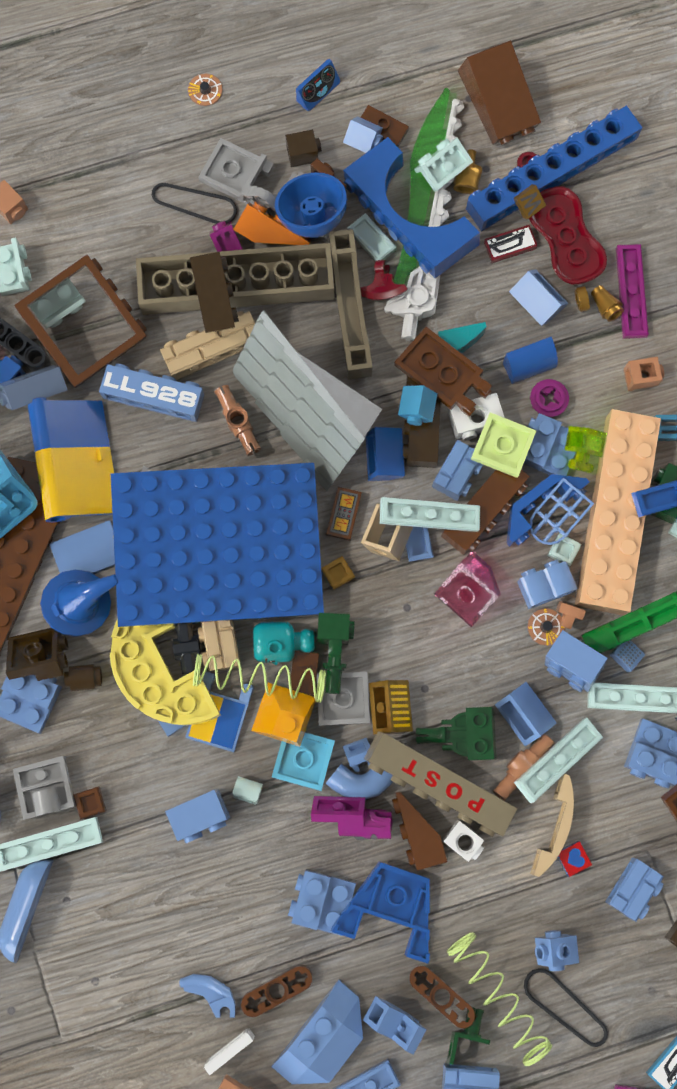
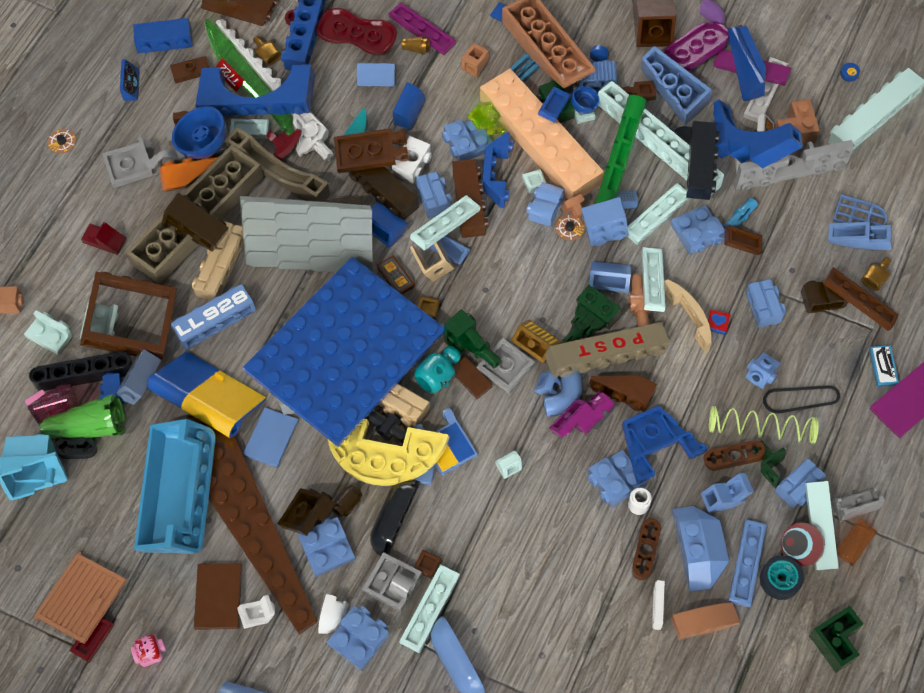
camera: 45 degrees left, 15 degrees down
(77, 602) = (297, 463): blue piece -> none
(106, 730) = (392, 516): none -> black brick
(142, 222) = (104, 238): none -> dark red slope
(197, 192) = (127, 209): black piece -> none
(197, 815) = (498, 499): medium blue brick -> none
(212, 990) = (614, 586): medium blue piece -> none
(224, 237) = (161, 199): magenta bracket -> none
(232, 409) = (288, 288): nougat pin -> none
(283, 716) = (483, 403): light orange slope -> none
(302, 148) = (157, 118): dark brown brick -> none
(306, 763) = (520, 417): medium azure plate -> none
(314, 955) = (639, 501): none -> white brick
(320, 687) = (493, 372): yellowish green piece -> none
(363, 134) = (186, 80): brick -> none
(391, 68) = (162, 35): none -> blue brick
(408, 174) = (234, 78): none -> red sticker
(417, 404) = (375, 175): dark azure brick -> none
(444, 163) = (249, 53): light aqua bracket -> none
(453, 835) = (657, 361): white brick -> none
(470, 589) = (509, 245): clear pink slope -> none
(503, 445) = (444, 154): yellowish green plate -> none
(510, 244) = (330, 63): tile -> none
(529, 201) = (318, 30): pearl gold tile -> none
(545, 388) = (443, 110): magenta gear -> none
(556, 526) = (506, 157): medium blue window -> none
(582, 299) = (400, 54): pearl gold tile -> none

